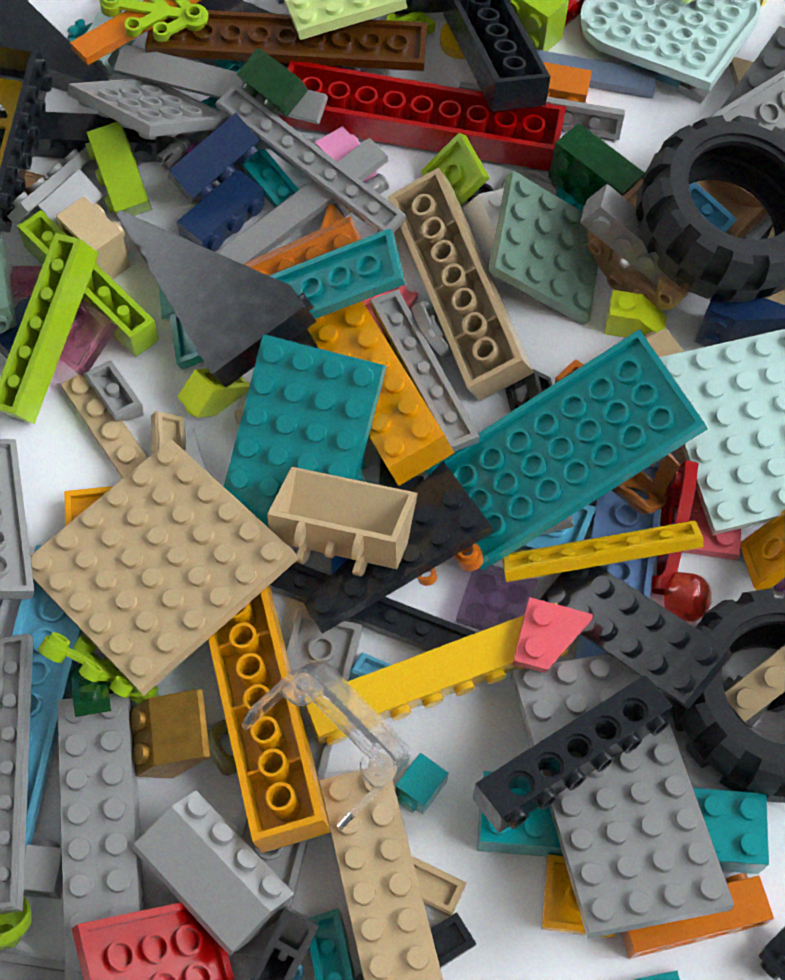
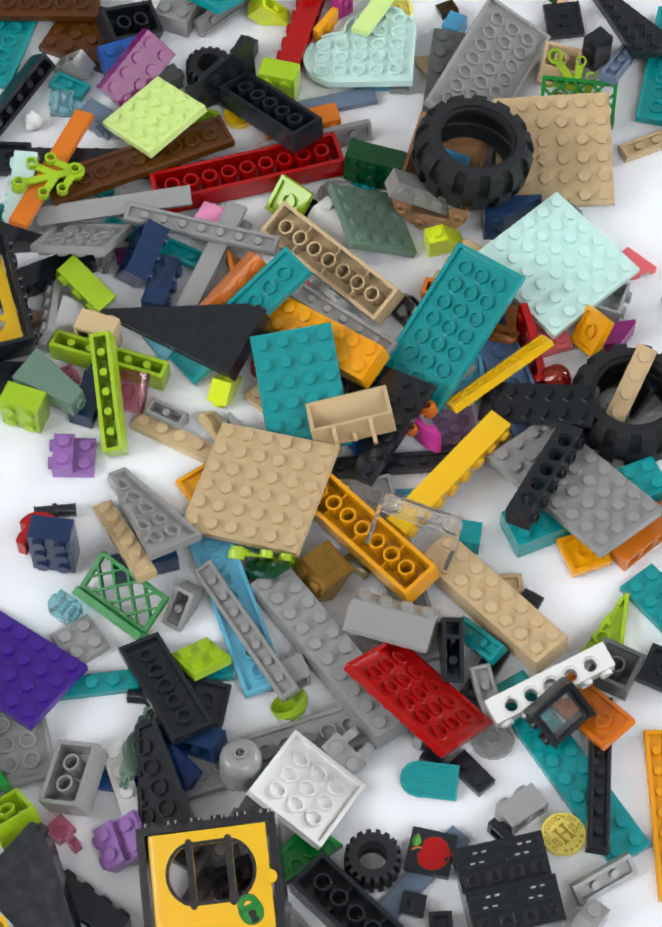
camera: 25 degrees left, 5 degrees down
(272, 82) = (153, 191): dark green brick -> none
(447, 594) = (428, 436): none -> dark pink slope
(547, 633) = (495, 427): coral wing -> none

